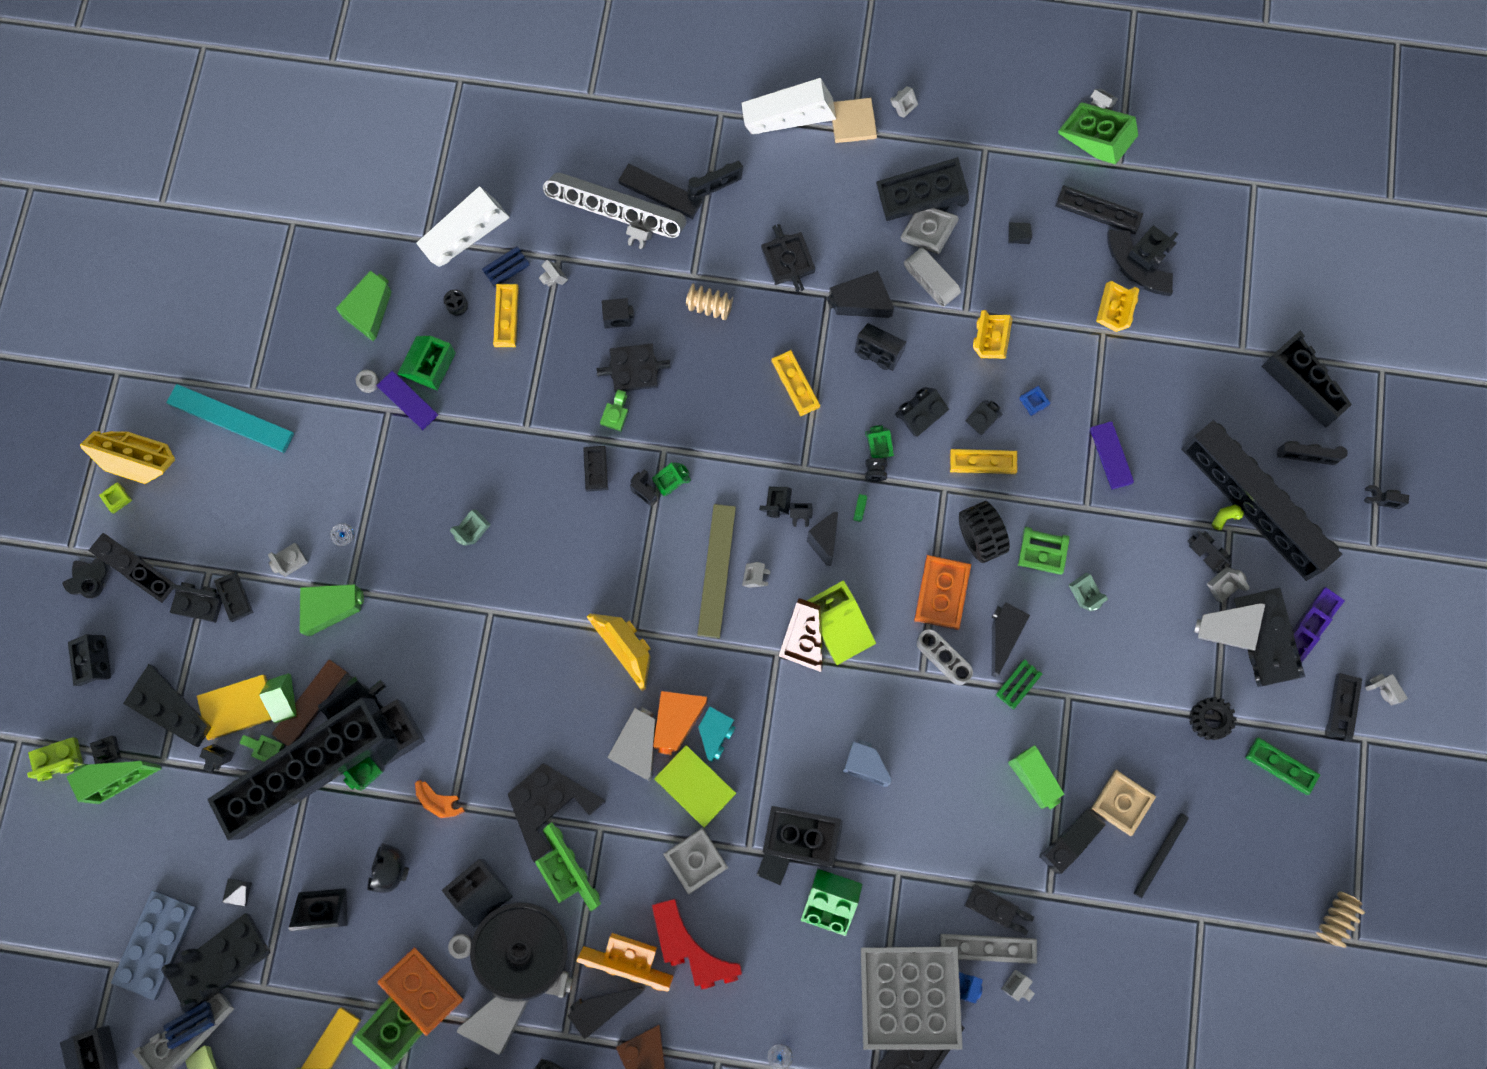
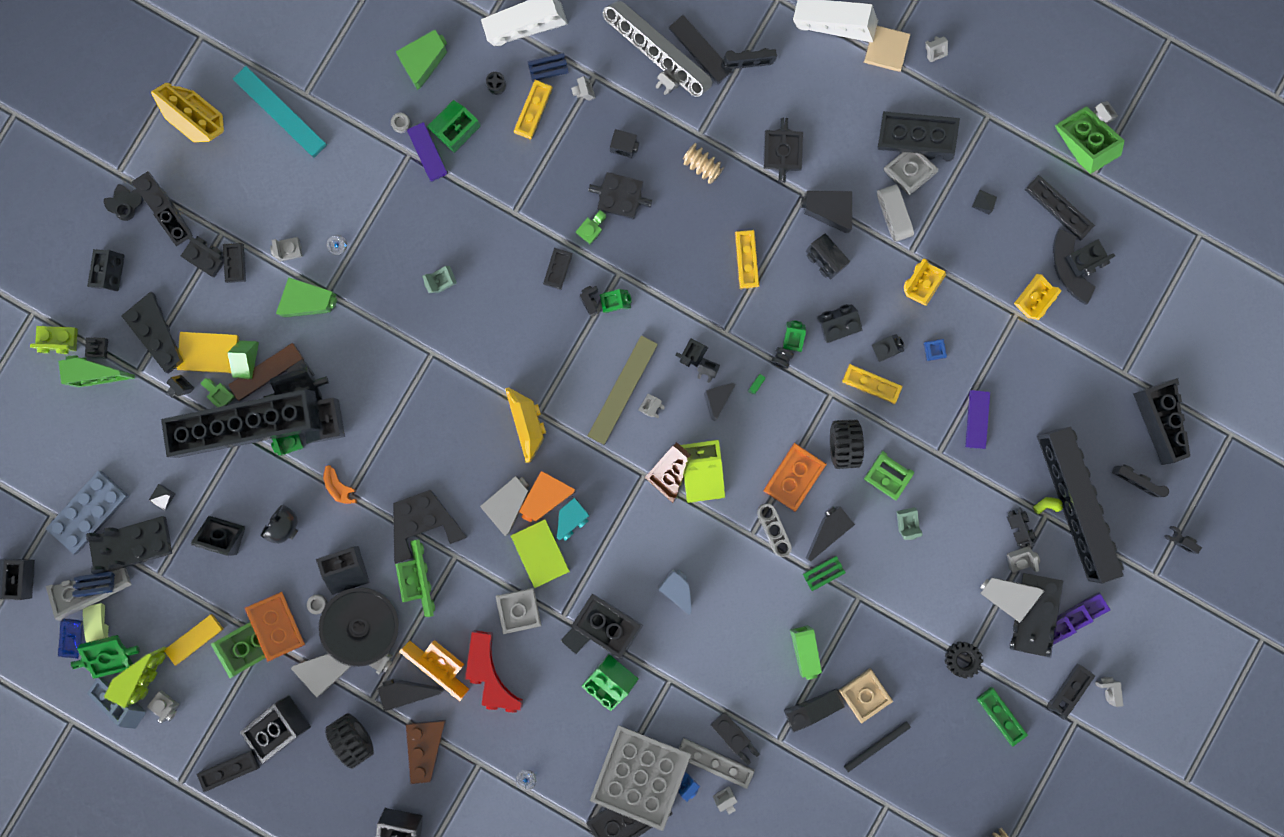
camera: 15 degrees right, 10 degrees up
(115, 497) = (167, 143): lime tile -> none

